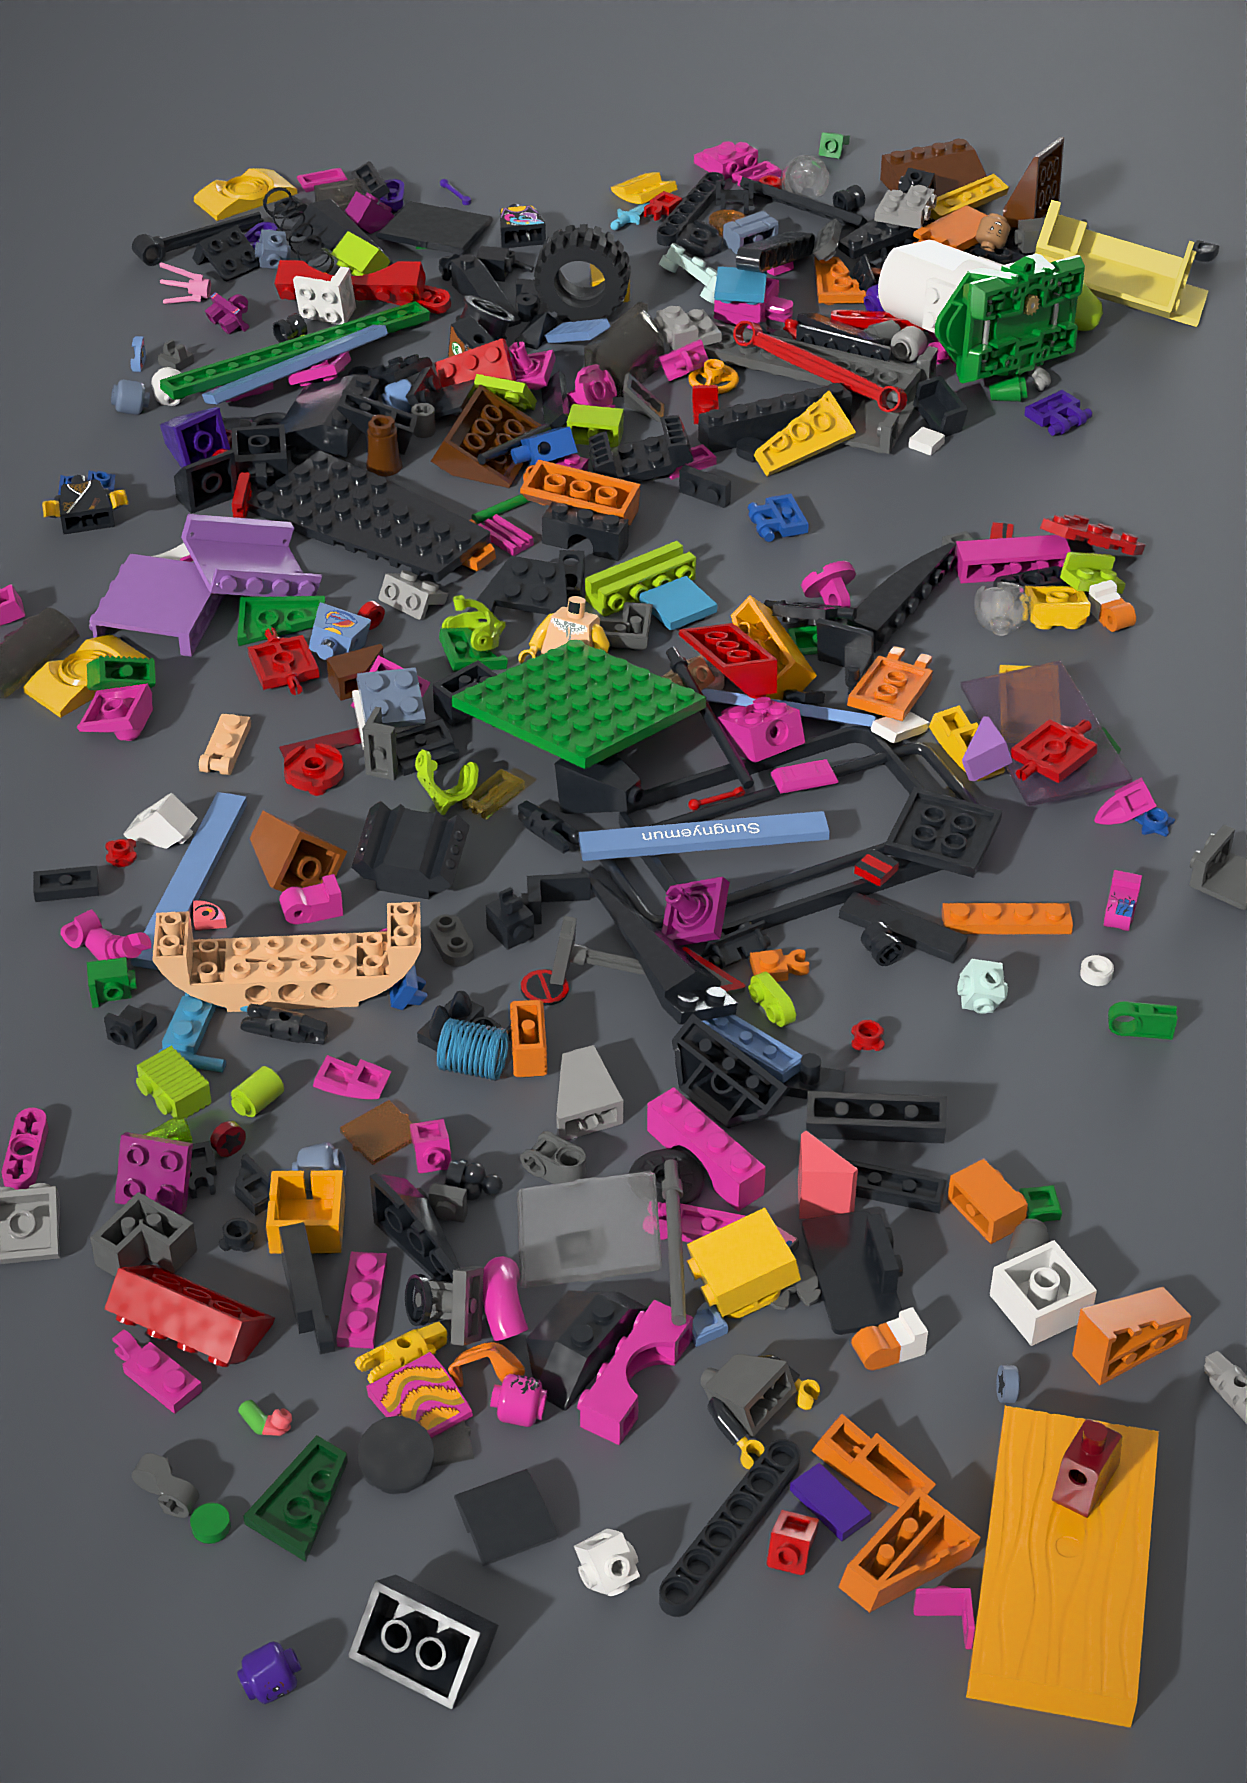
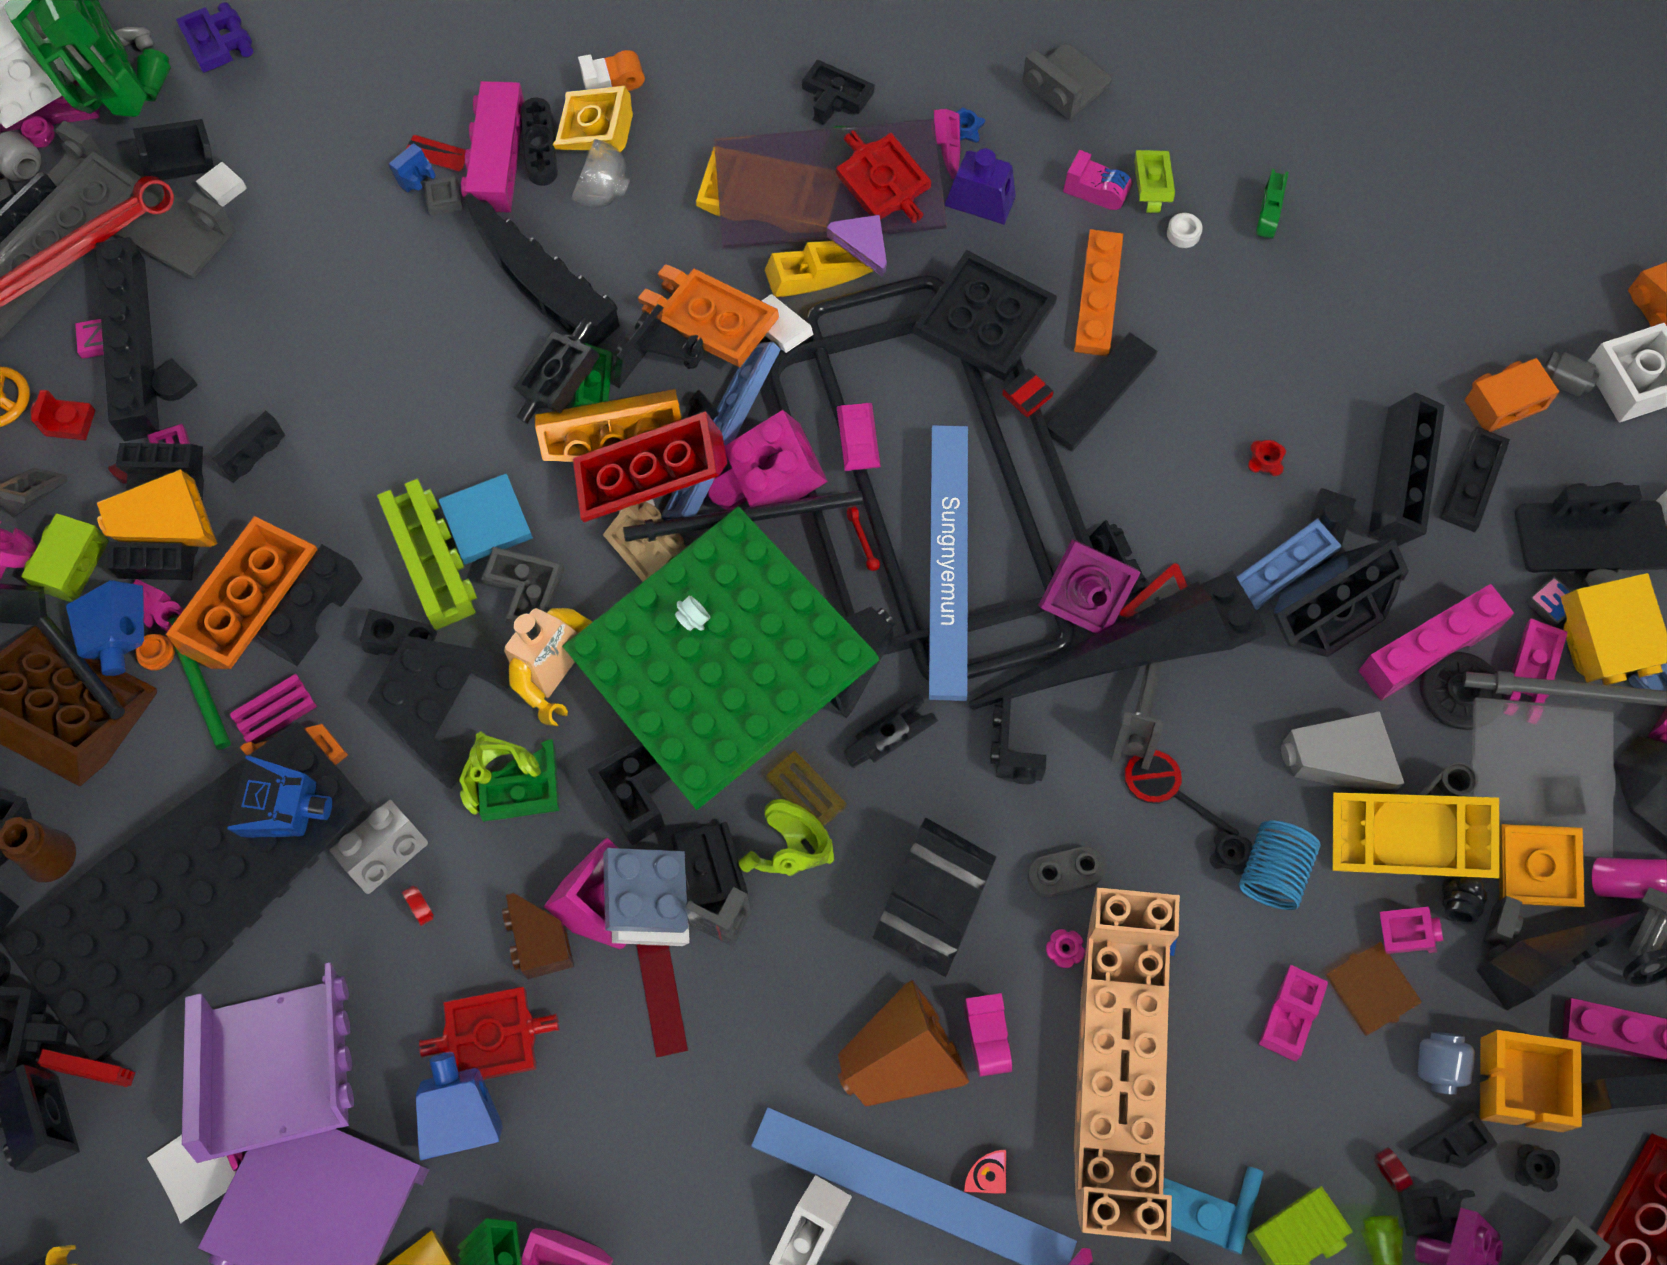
camera: 80 degrees left, 25 degrees up
(225, 744) = (645, 1130): light nougat plate -> none
(228, 645) = (454, 1110): none -> torso
(256, 1092) = (1321, 1130): lime brick -> none
(283, 613) = (384, 1035): green wing -> none
(284, 1025) = (1212, 1069): black hinge -> none
(302, 769) = (723, 1035): red plate -> none
(337, 631) = (461, 955): medium blue torso -> none
(427, 522) = (275, 801): none -> torso
(458, 1008) = (1209, 889): black tile -> none
(505, 1229) = (1541, 865): none -> light orange tile
(510, 919) = (1056, 797): black brick -> none
(512, 1126) = (1416, 834): none -> yellow slope
(528, 1038) = (1266, 798): orange brick -> none
(602, 672) = (691, 614): none -> light aqua plate
(634, 447) = (158, 512): none -> light orange slope
(772, 999) = (1202, 540): lime plate -> none
(778, 964) = (1145, 529): orange plate -> none
(785, 516) = (336, 366): blue plate -> none
(809, 434) = (185, 305): yellow wing -> none
(824, 1180) = (1503, 539): coral slope -> none
(830, 583) = (508, 339): dark pink tile -> none
(880, 941) = (1138, 413): black wheel -> none
(973, 520) = (411, 168): none -> blue tile
(982, 986) = (1221, 332): light aqua brick -> none
(1042, 1203) = (1501, 352): green tile -> none
(1083, 811) = (983, 186): none -> dark purple torso
(1088, 569) = (556, 77): lime bracket -> none
(1098, 535) = (480, 58): red plate -> none
(1140, 935) = (1154, 178): none -> lime plate
(1152, 736) = (835, 90): none -> black hinge

